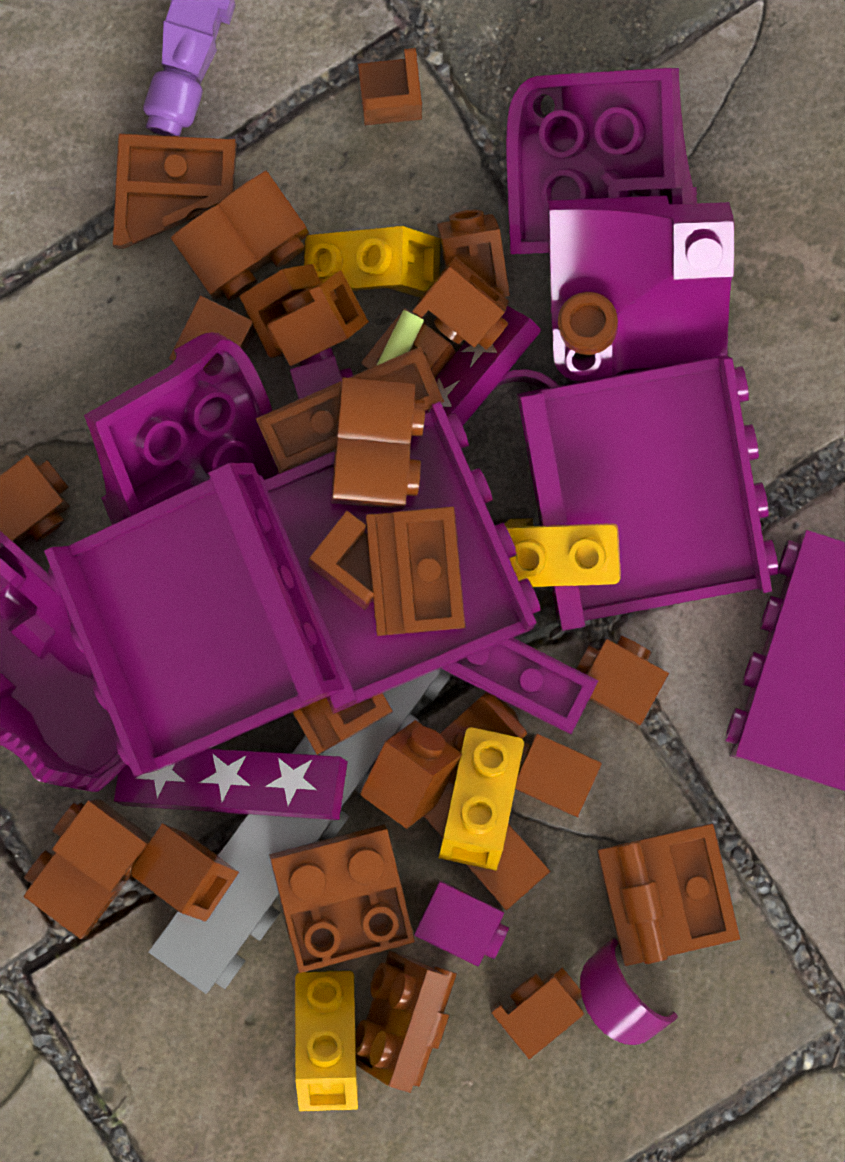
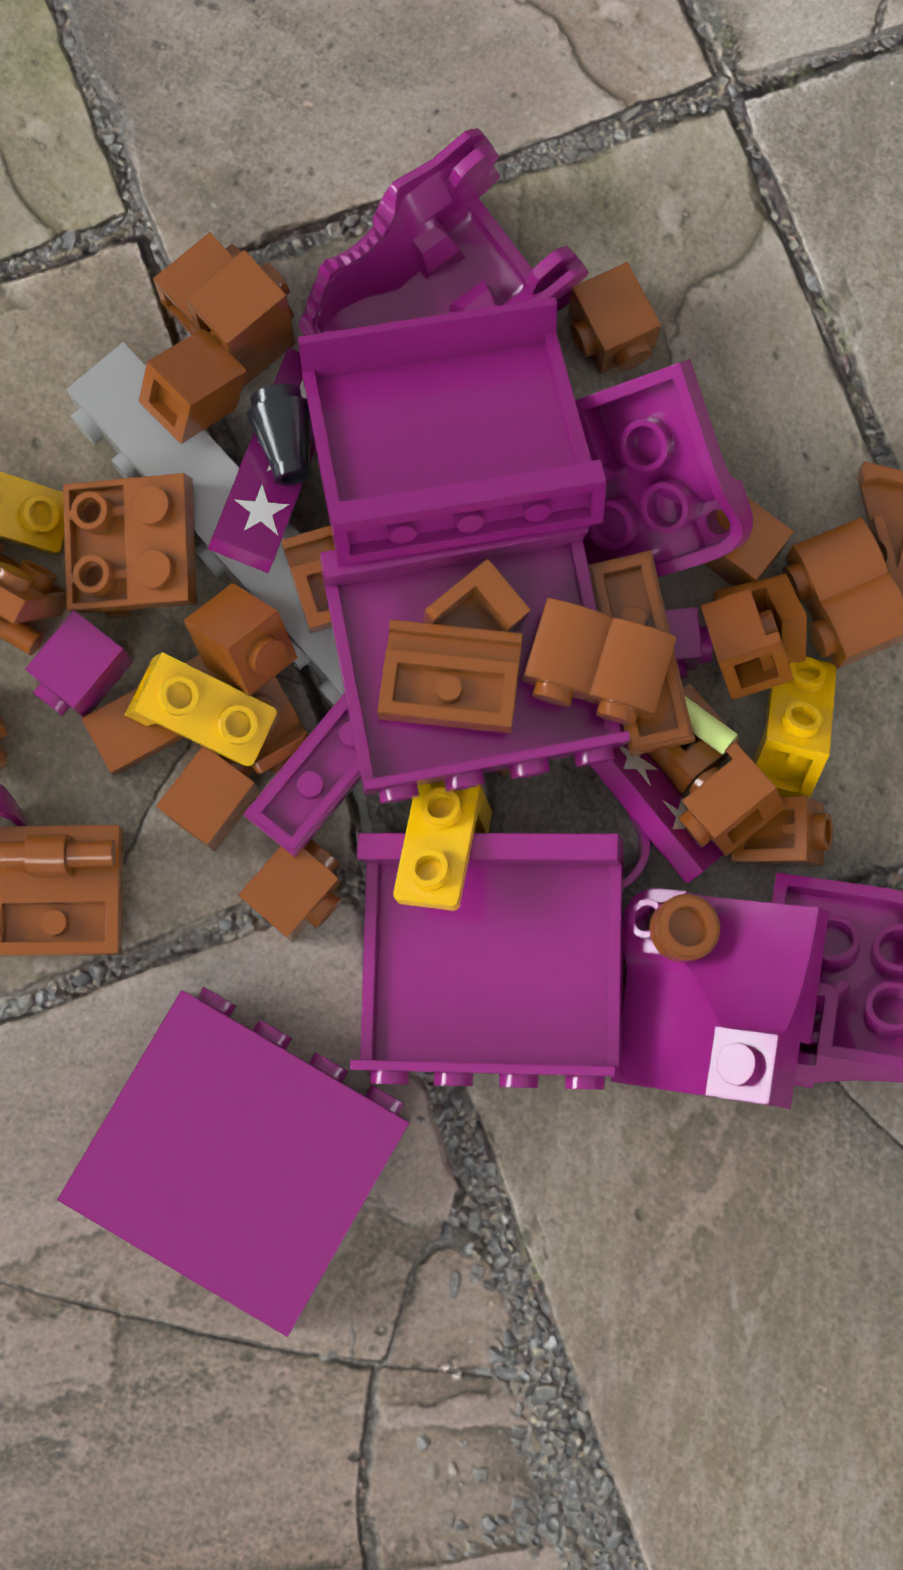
camera: 100 degrees right, 5 degrees down
(213, 776) = (283, 430): none -> black cone

